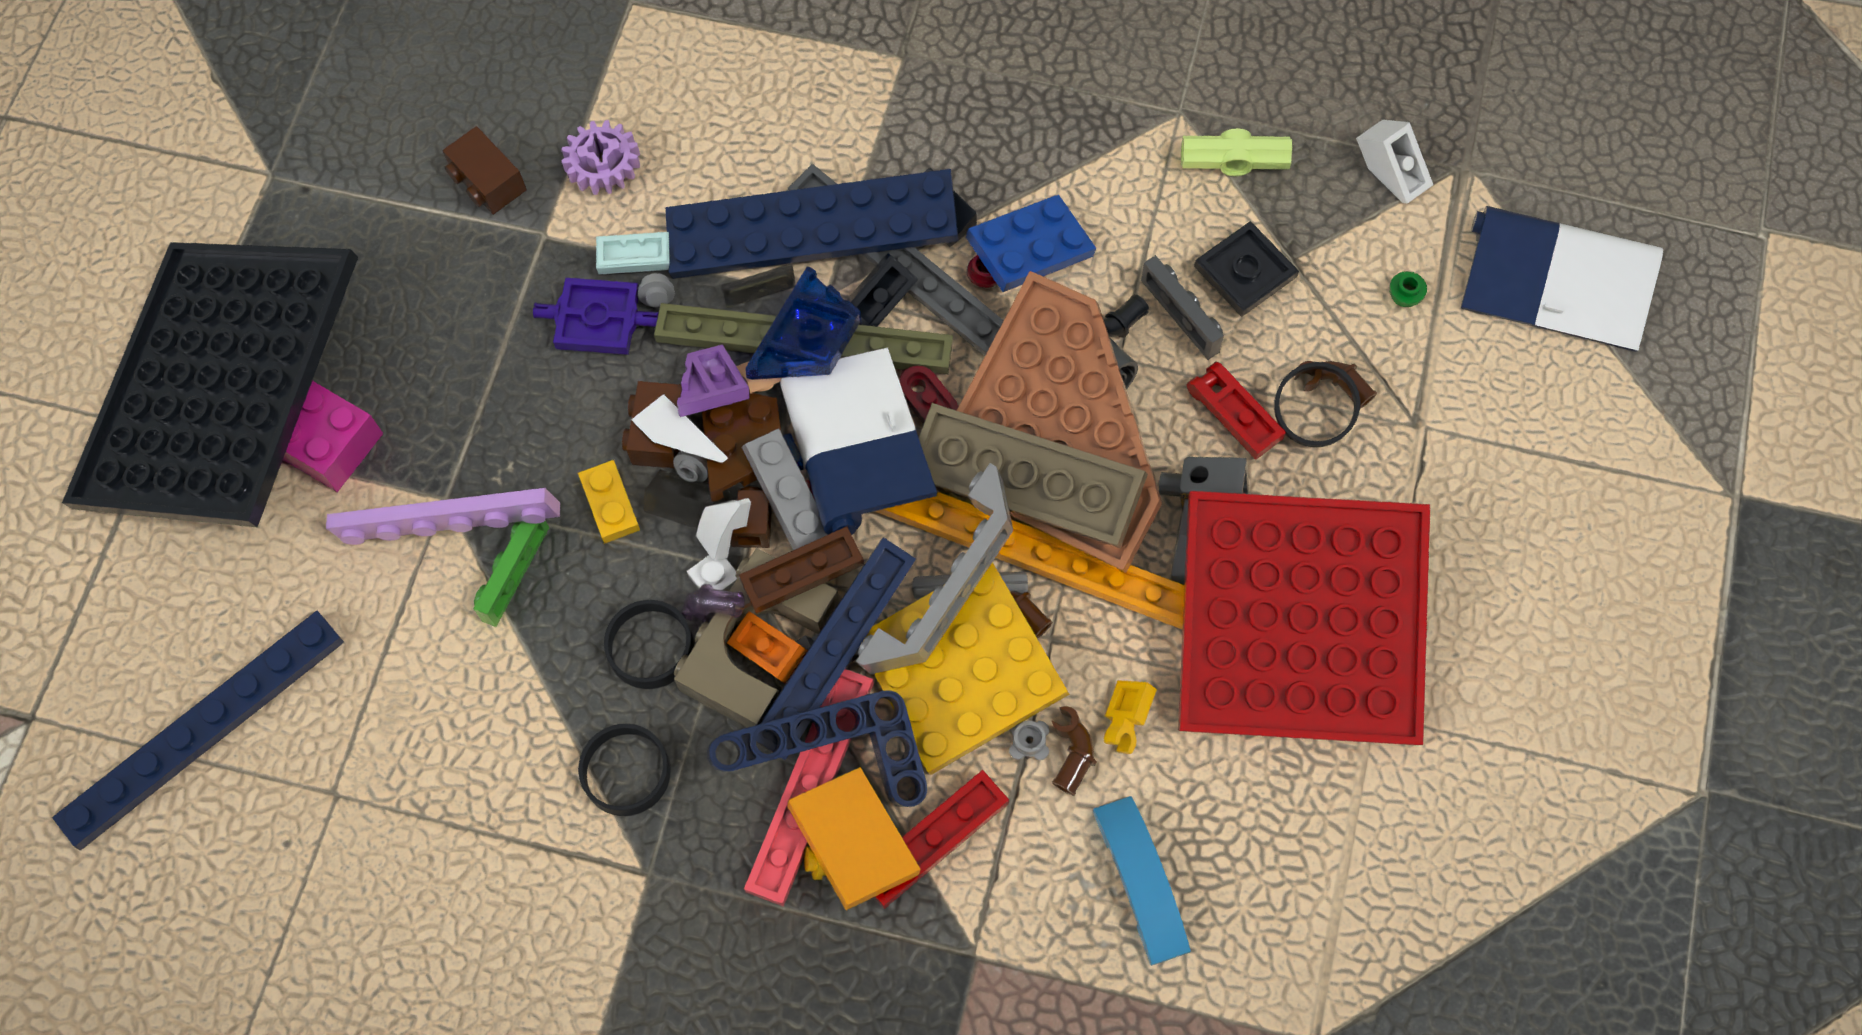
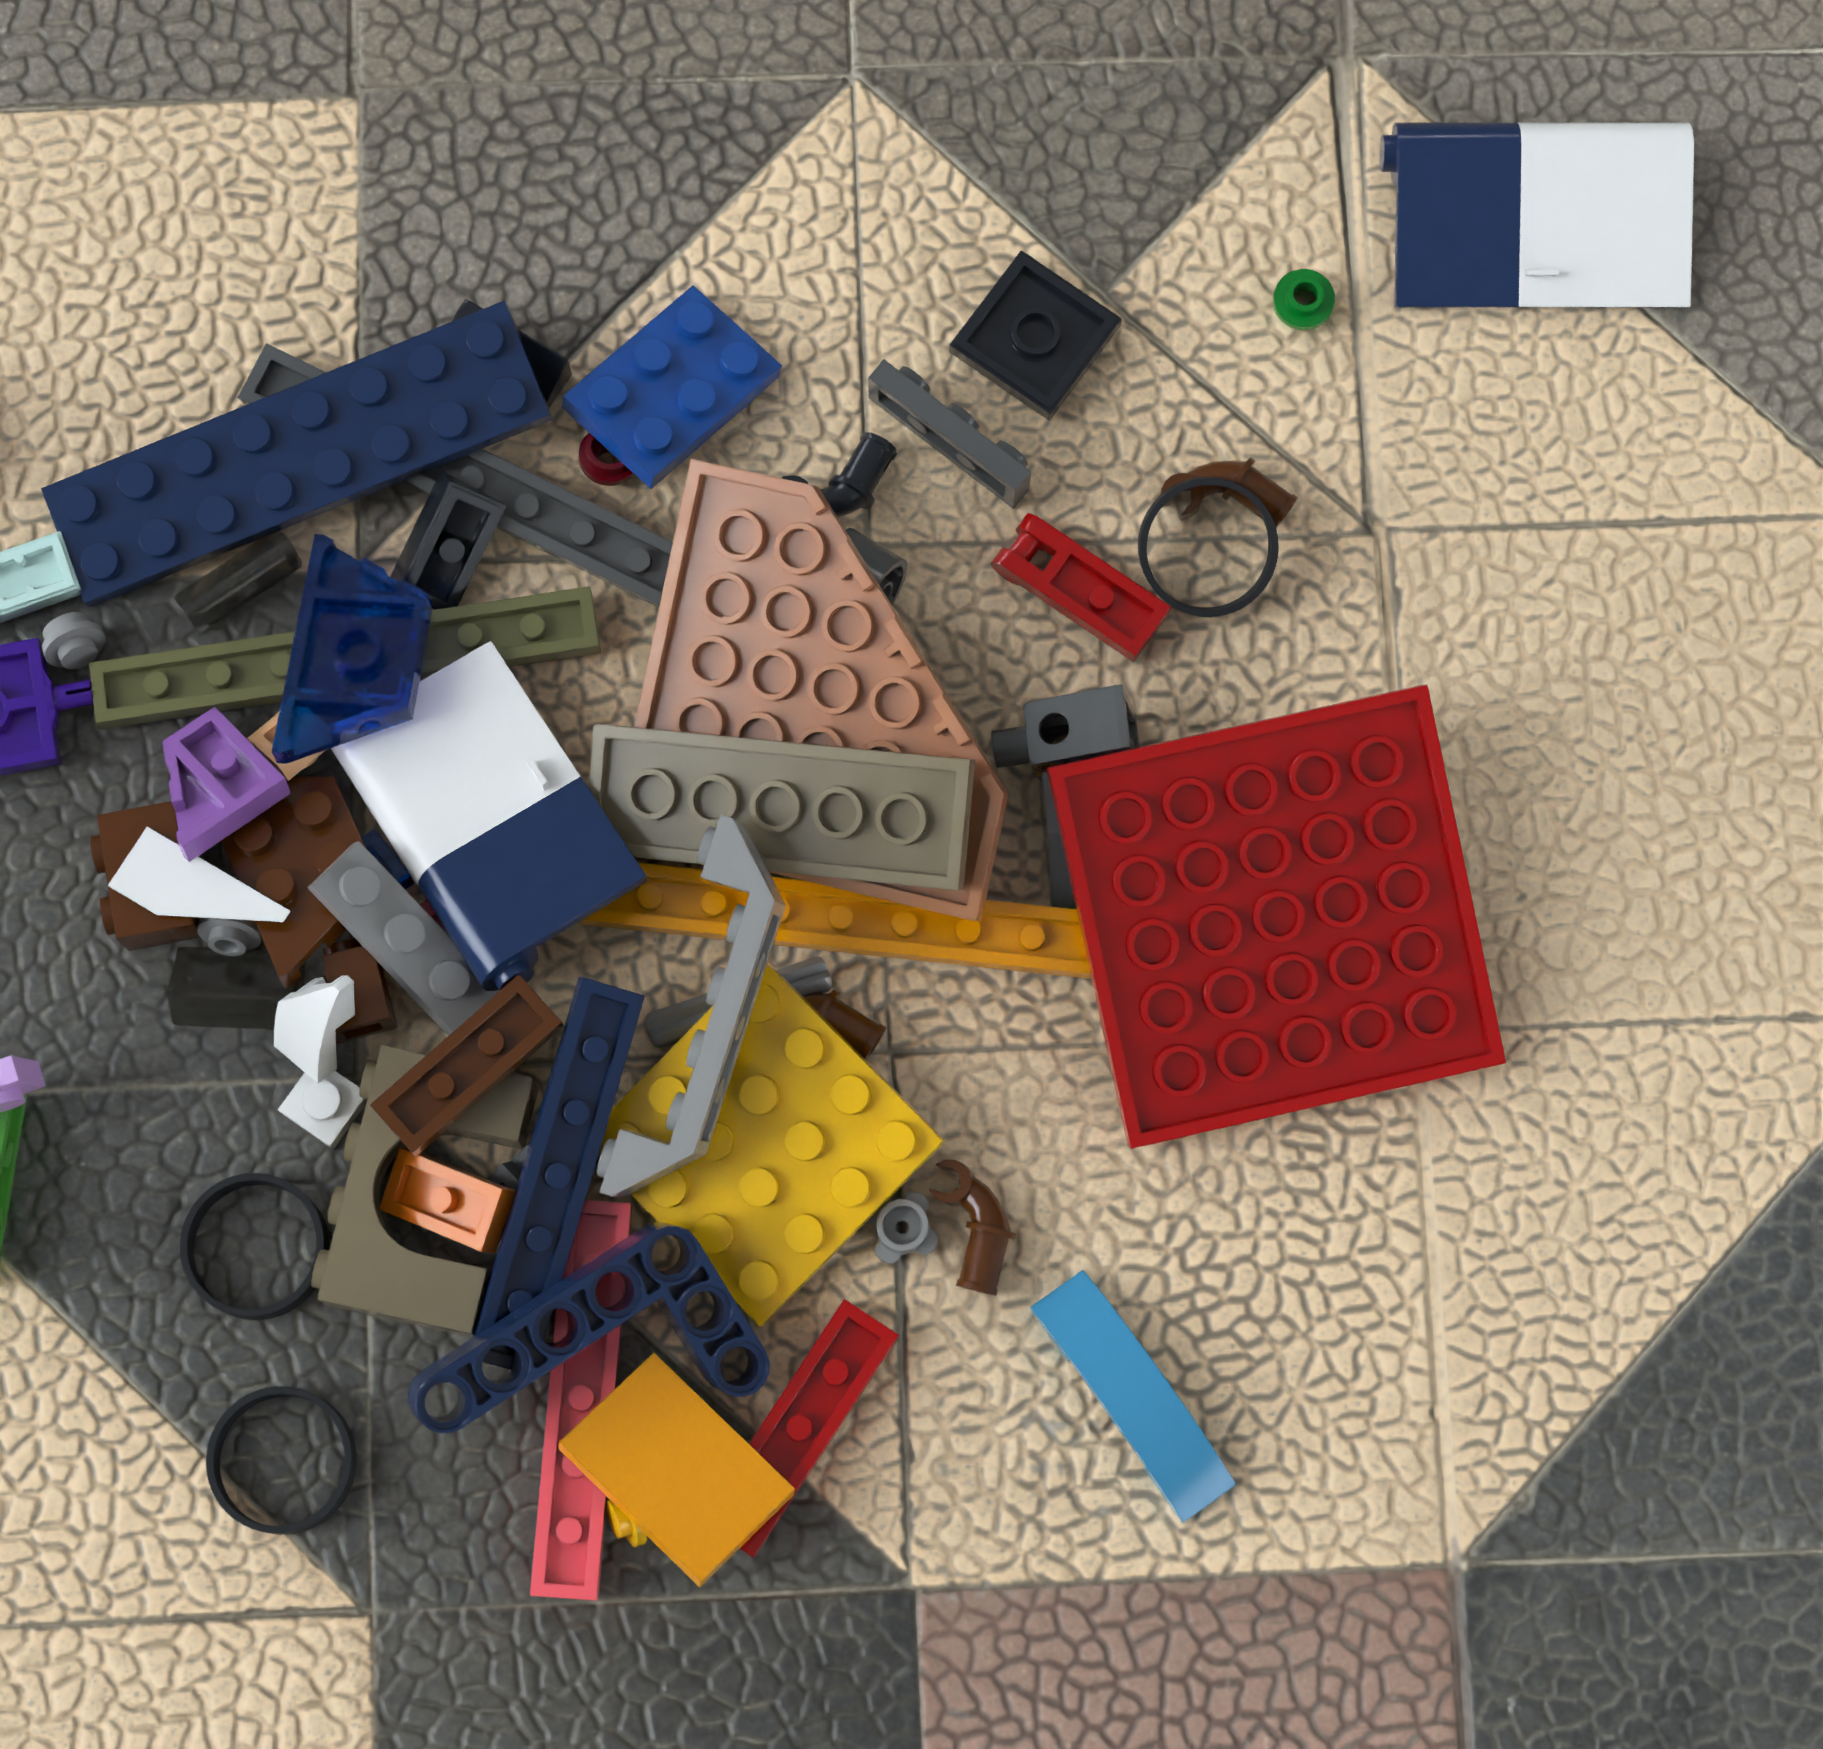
camera: 20 degrees left, 10 degrees up
(609, 501) = (111, 1026): yellow plate -> none
(712, 600) = (339, 1155): clear purple piece -> none
(934, 391) = (587, 703): dark red plate -> none
(1126, 709) = (1040, 1135): yellow plate -> none
(1236, 152) = (966, 130): yellowish green piece -> none
(1395, 158) = (1229, 74): white slope -> none

